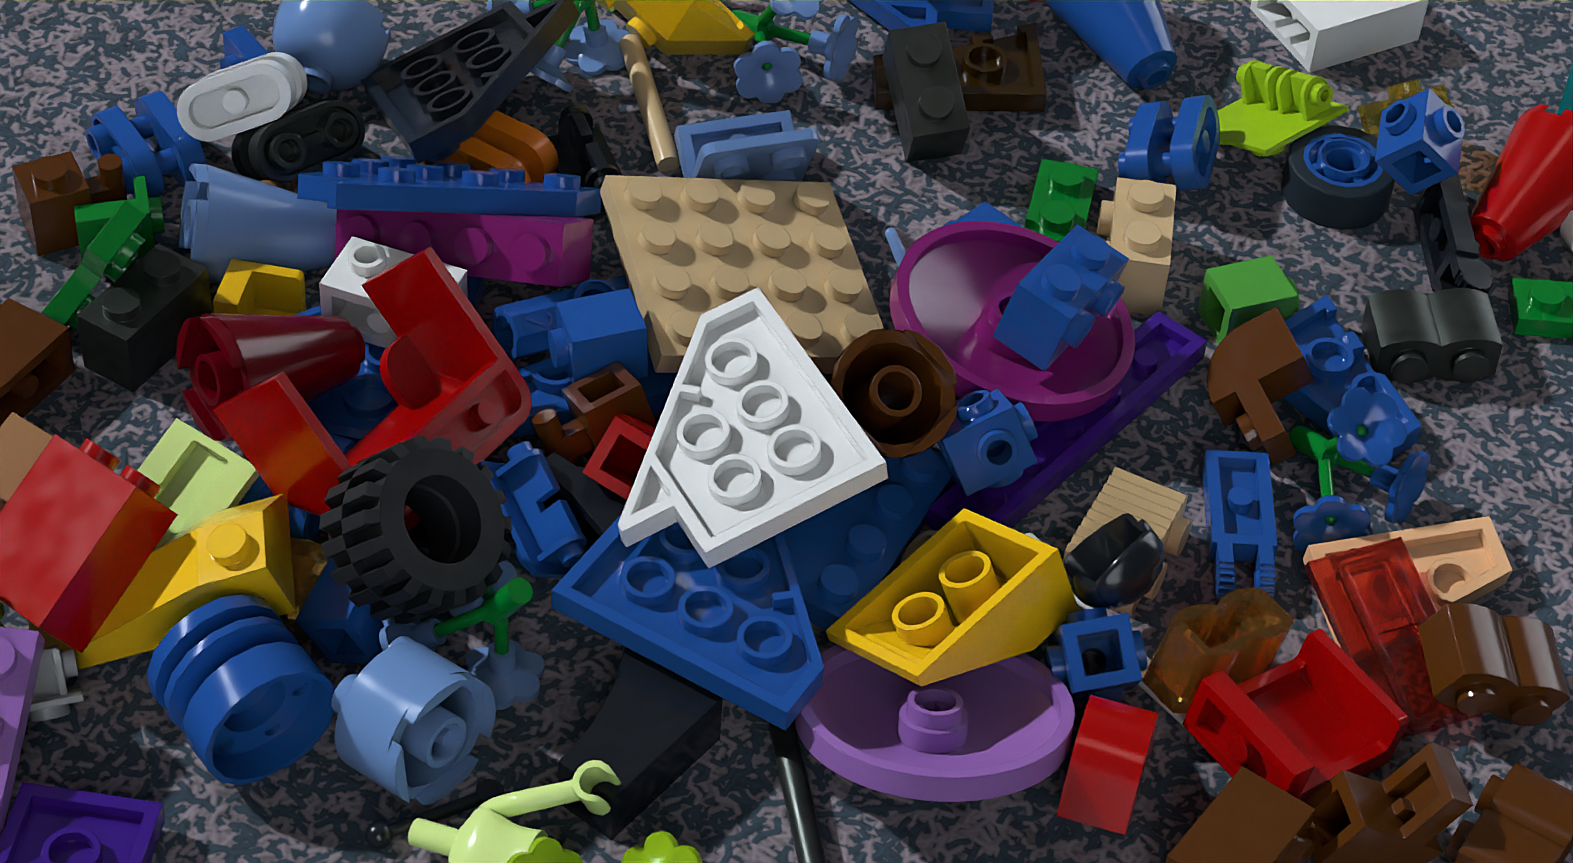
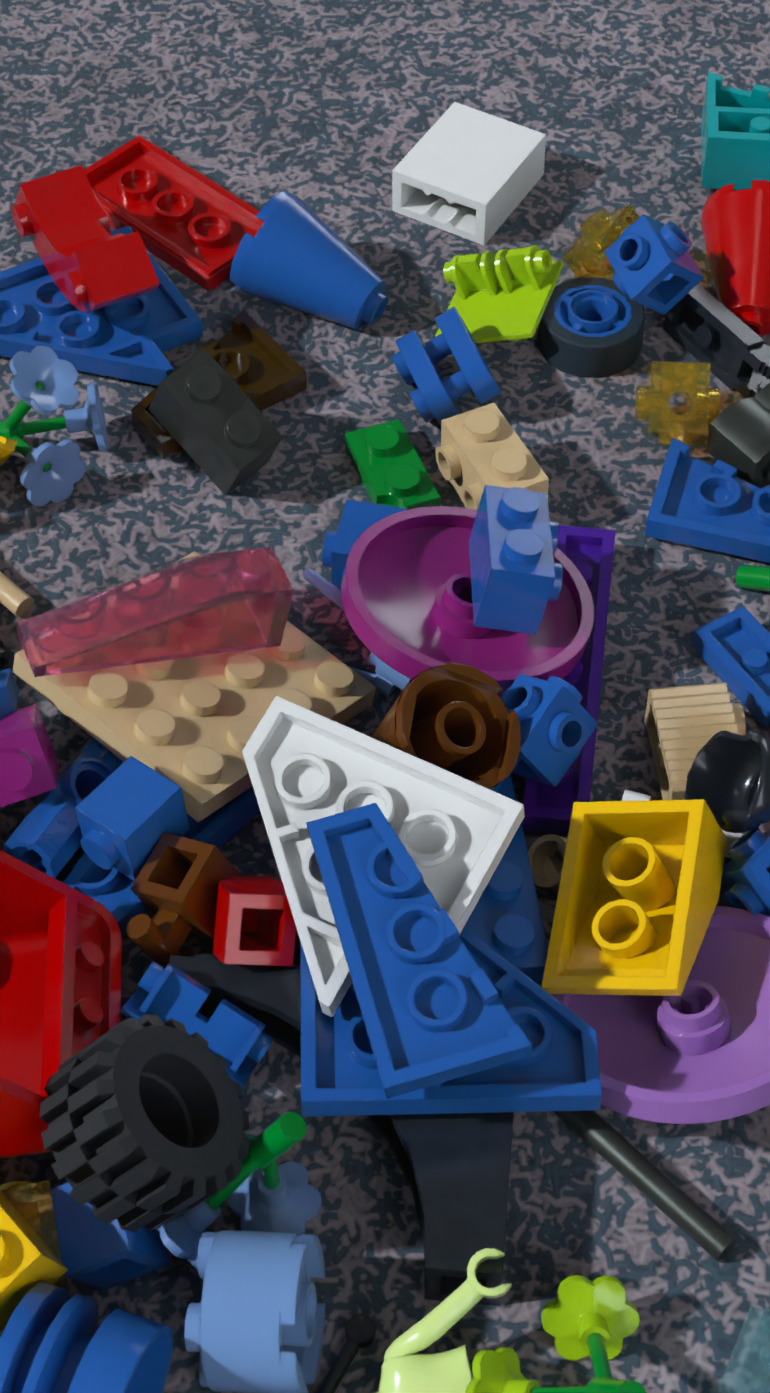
camera: 30 degrees left, 5 degrees up
(695, 528) = (414, 979): none -> blue wing
(746, 148) = (95, 556): medium blue bracket -> none
(761, 208) = (166, 614): none -> clear pink wedge
(1244, 291) = (616, 478): bright green brick -> none
(1252, 371) = (680, 542): reddish brown brick -> none
(1344, 249) = (689, 381): none -> clear yellow brick

